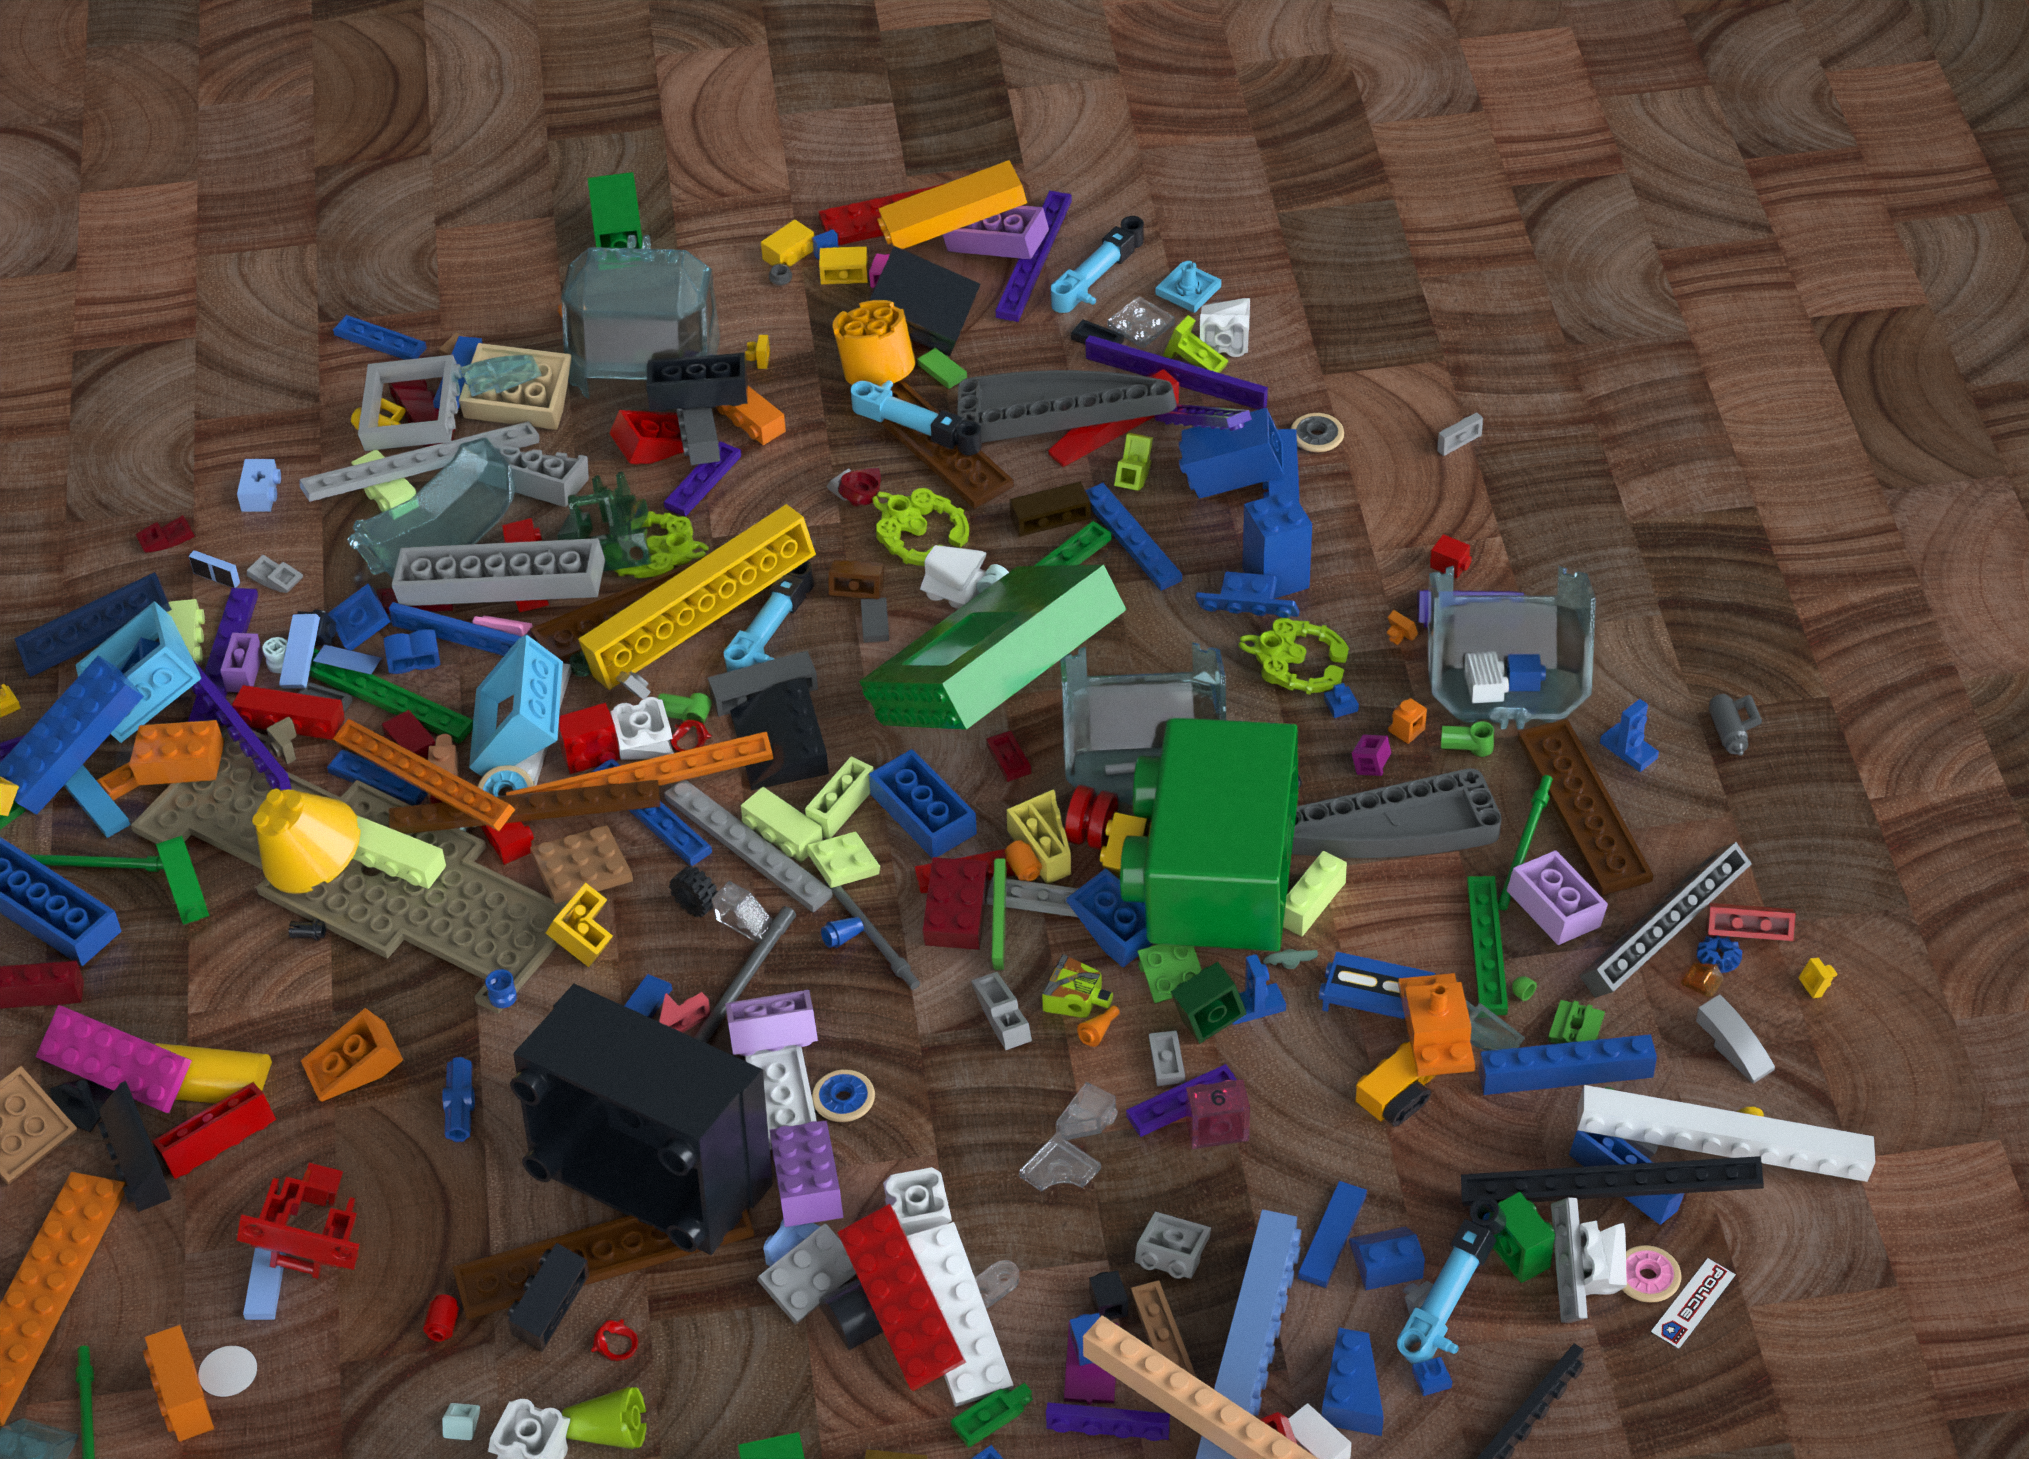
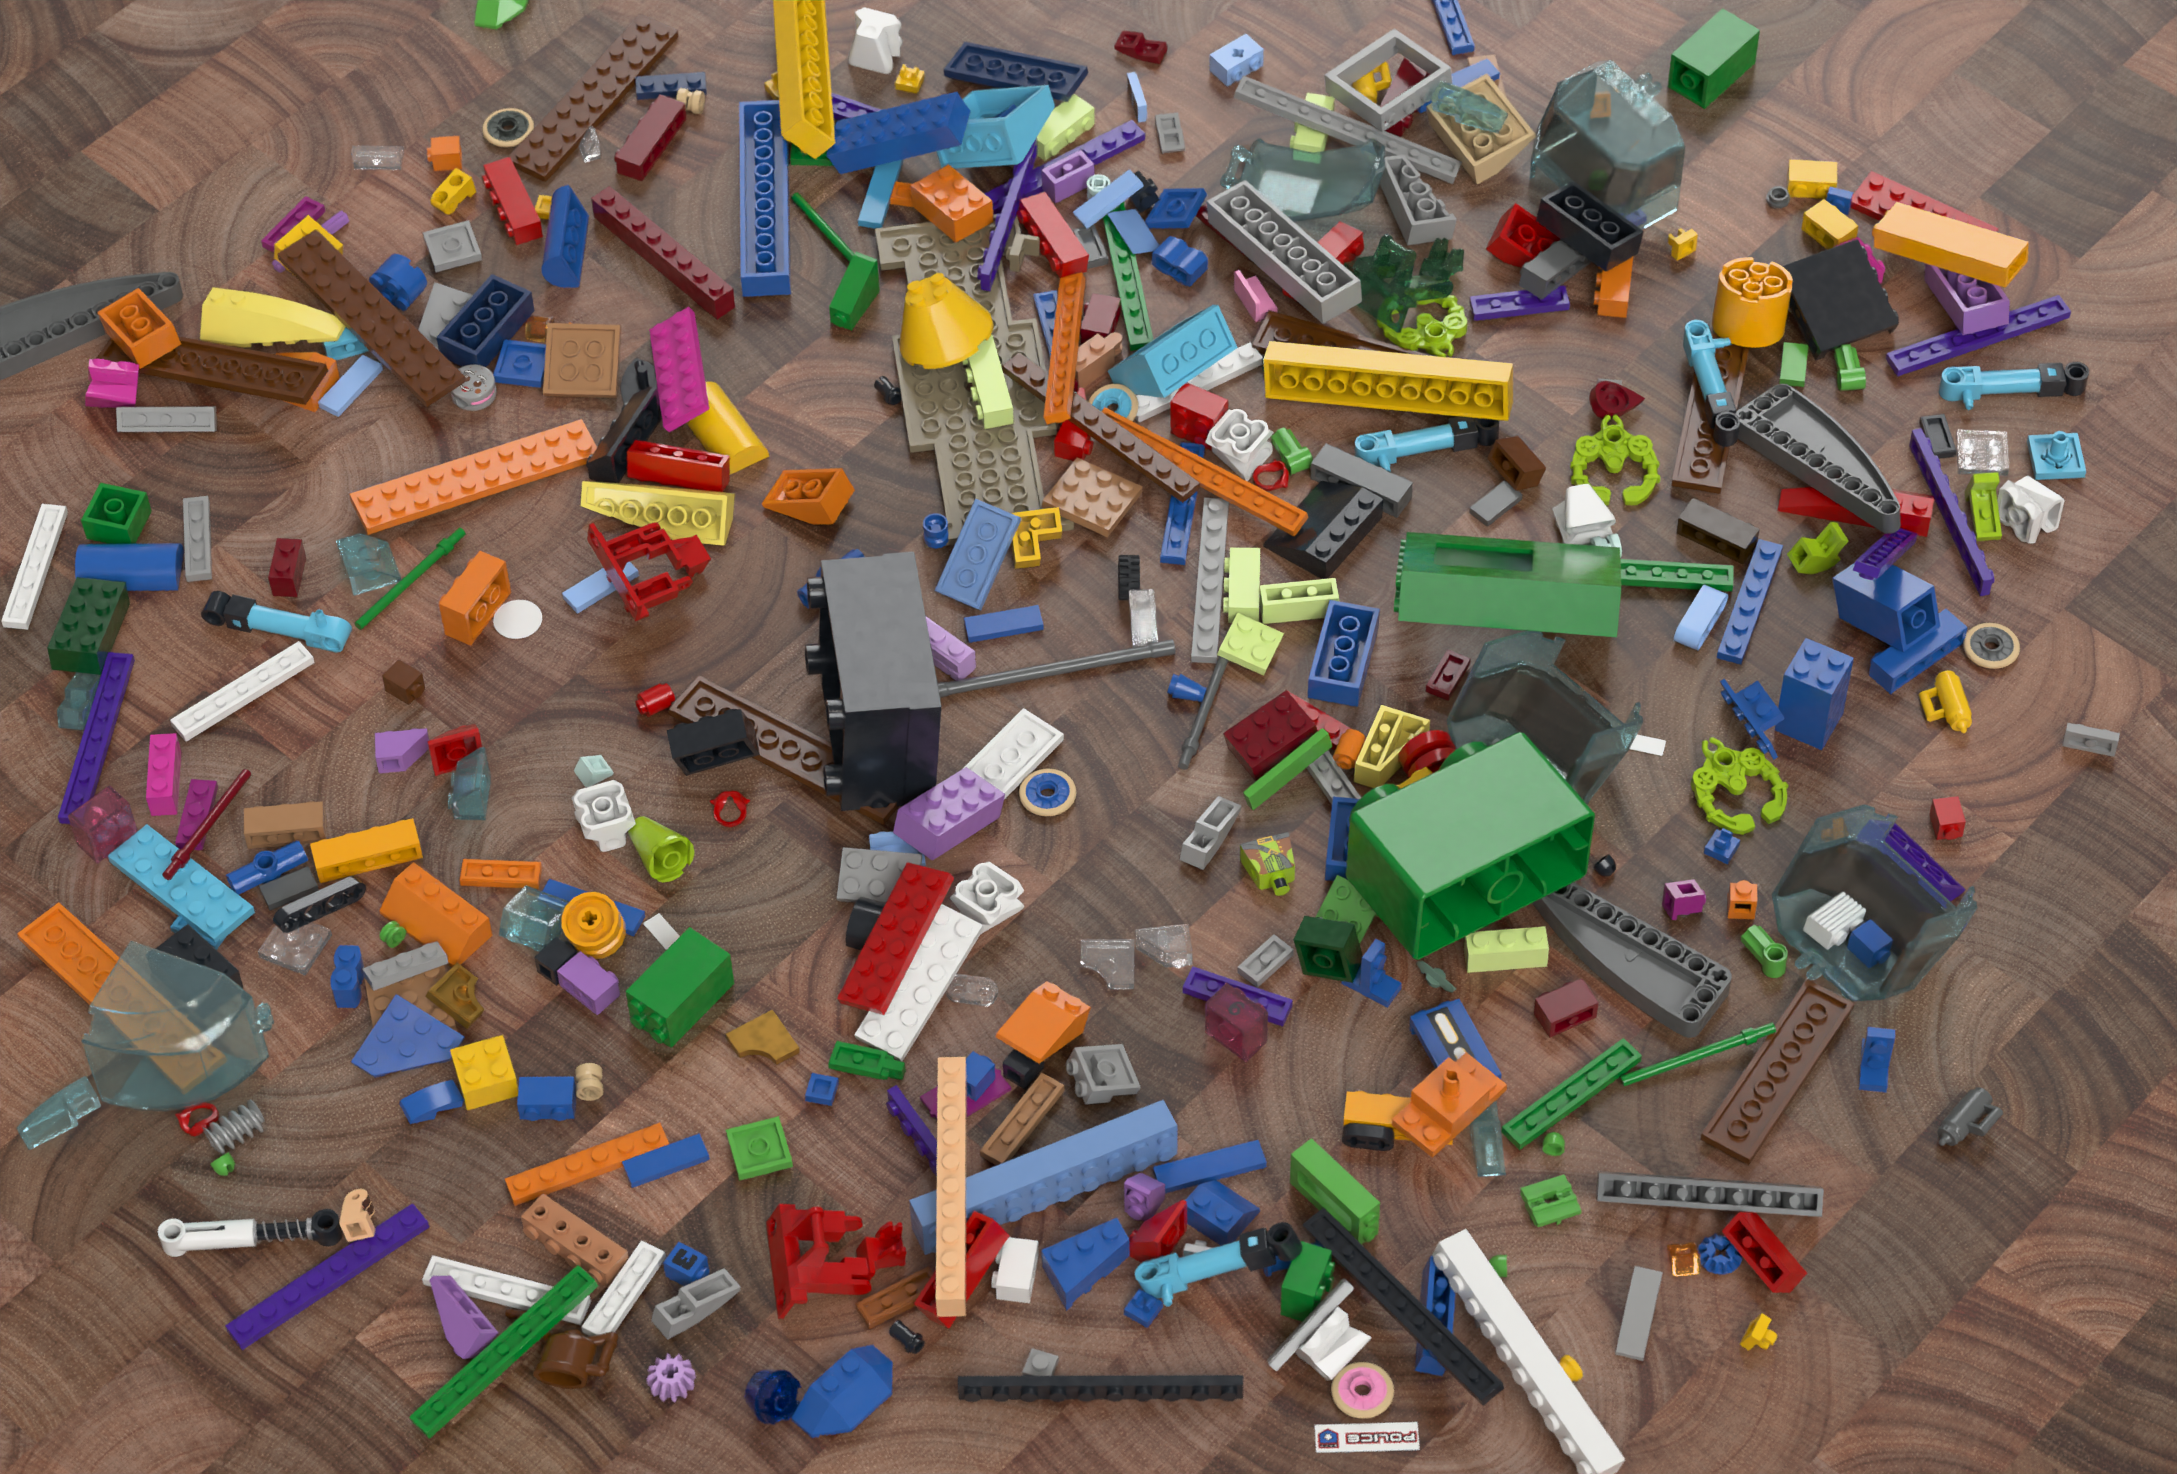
camera: 50 degrees right, 5 degrees up
(244, 1172) = (675, 509): none -> light yellow wedge
(452, 629) = (1225, 275): blue tile -> none
(553, 960) = (978, 554): none -> medium blue tile
(634, 684) = (1268, 404): light grey plate -> none
(687, 1014) = (1016, 650): coral slope -> none
(771, 1022) = (1057, 702): lavender brick -> none
(989, 344) = (1849, 374): none -> bright green piece
(1088, 1248) = (1044, 1022): none -> orange slope
(1094, 1029) = (1248, 899): orange cone -> none
(1120, 569) = (1700, 617): none -> light blue beam
(1327, 1297) = (1143, 1196): none -> medium lavender slope
(1347, 484) = (1952, 699): none -> yellow piece
(1380, 1310) = (1159, 1233): none -> red slope
(1402, 894) = (1565, 1007): none -> dark red brick
(1441, 1156) = (1332, 1187): none -> bright green piece
(1557, 897) = (1656, 1107): lavender brick -> none
(1567, 1064) = (1504, 1216): blue brick -> none

